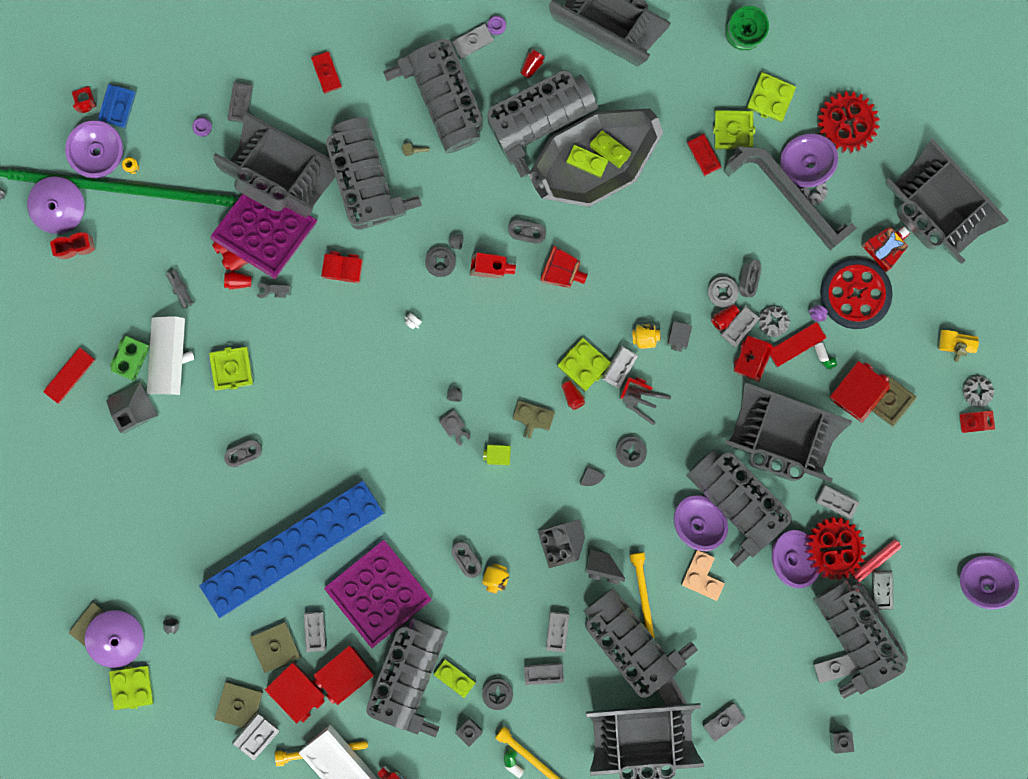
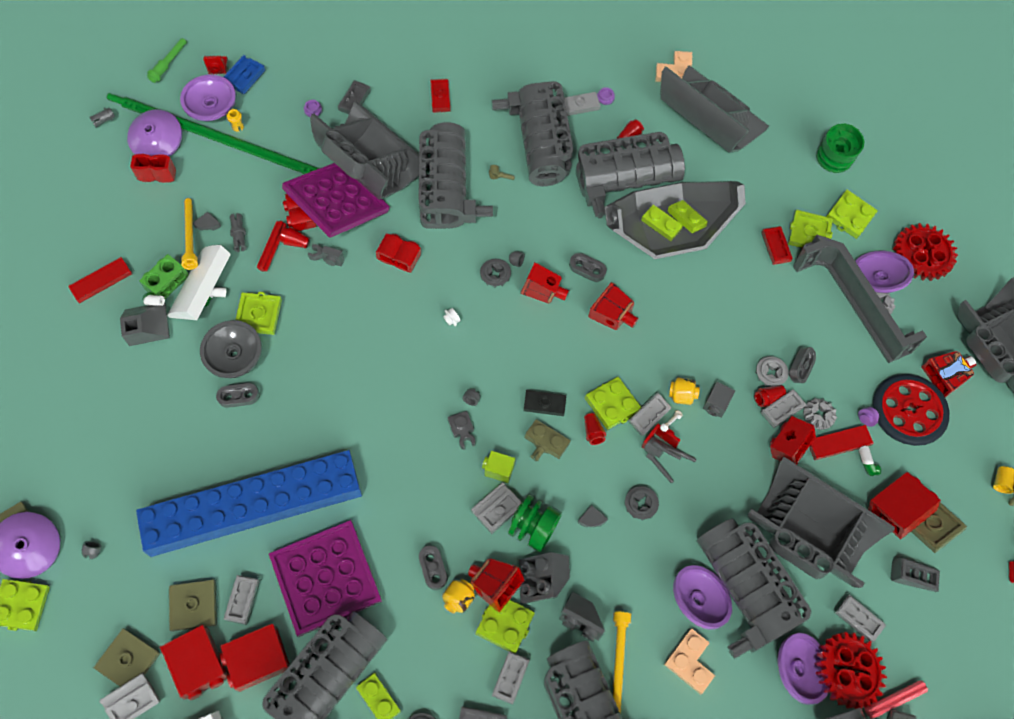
camera: 10 degrees right, 20 degrees down
(28, 119) = (158, 70): none -> bright green pin
(128, 385) = (150, 299): none -> white arm
(145, 286) = (206, 222): none -> dark grey tile
(149, 336) = (189, 259): none -> yellow piece
(208, 414) = (226, 339): none -> dark grey dish
(217, 294) = (271, 247): none -> red axle
(506, 492) = (496, 508): none -> light grey plate
(522, 381) = (545, 403): none -> pearl dark grey plate
(523, 559) = (495, 582): none -> red torso
(540, 589) = (507, 627): none -> lime plate
(543, 499) = (534, 523): none -> green wheel
(645, 359) = (677, 415): none -> white hinge
(867, 450) = (901, 574): none -> dark grey slope

